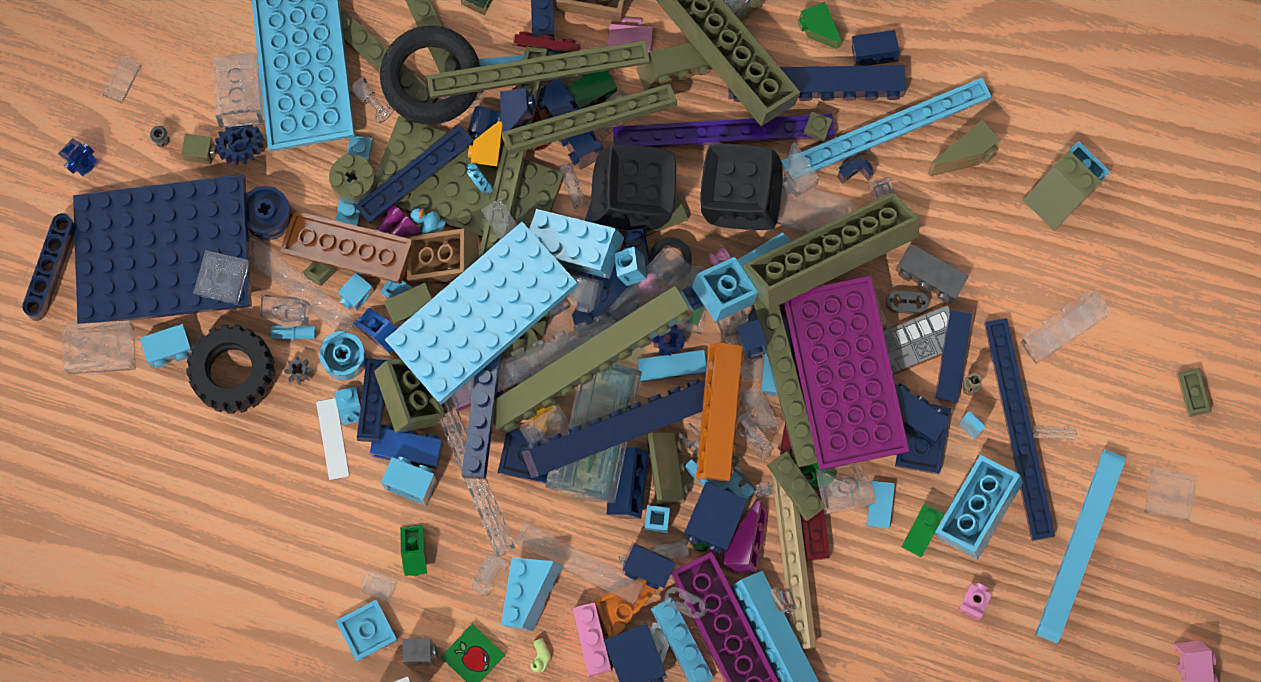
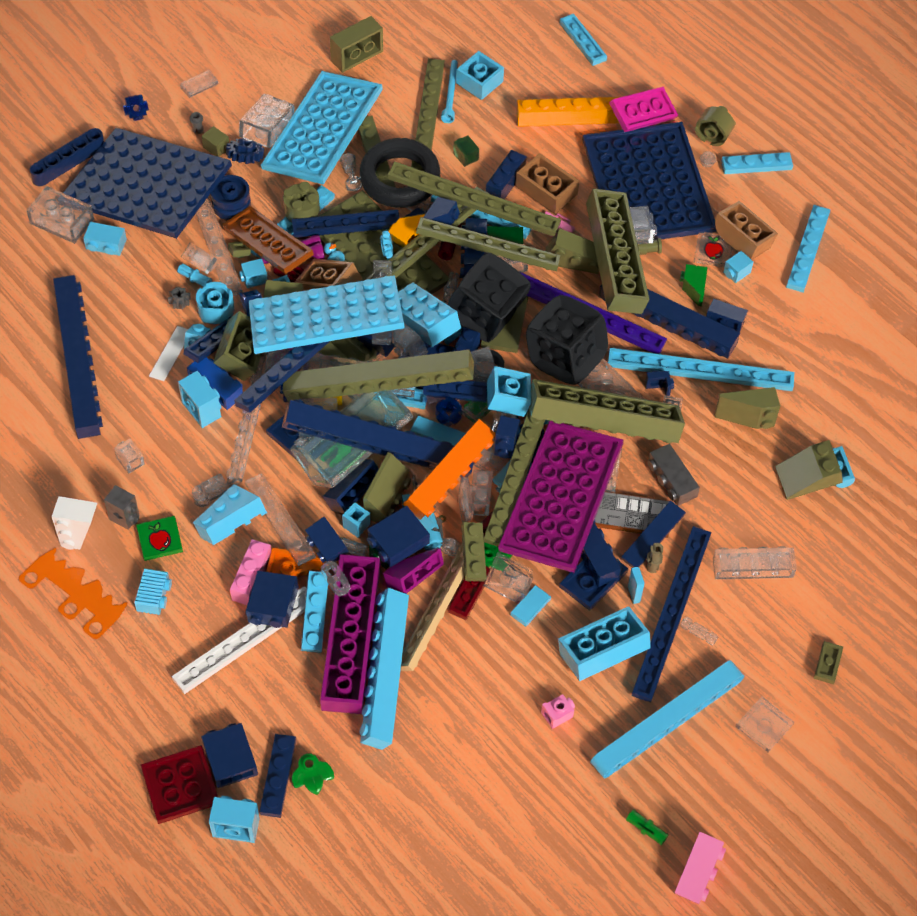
camera: 30 degrees right, 20 degrees down
(210, 348) = (134, 253): black tyre -> none
(221, 277) = (169, 207): clear plate -> none
(240, 504) = (76, 357): none -> dark blue brick
(366, 630) = (97, 478): medium azure plate -> none
(413, 550) = (169, 447): green slope -> none
(542, 658) = (204, 569): yellowish green arm -> none
(545, 42) = (480, 182): dark red plate -> none
(630, 266) = (452, 341): medium azure brick -> none
(783, 599) = (411, 623): clear tile -> none
(799, 174) = (615, 357): clear slope -> none
(817, 126) = (650, 338): olive plate -> none
(908, 297) = (642, 485): dark grey beam -> none
(922, 530) = (546, 639): green slope -> none
(1125, 668) = (647, 827): none -> green pin

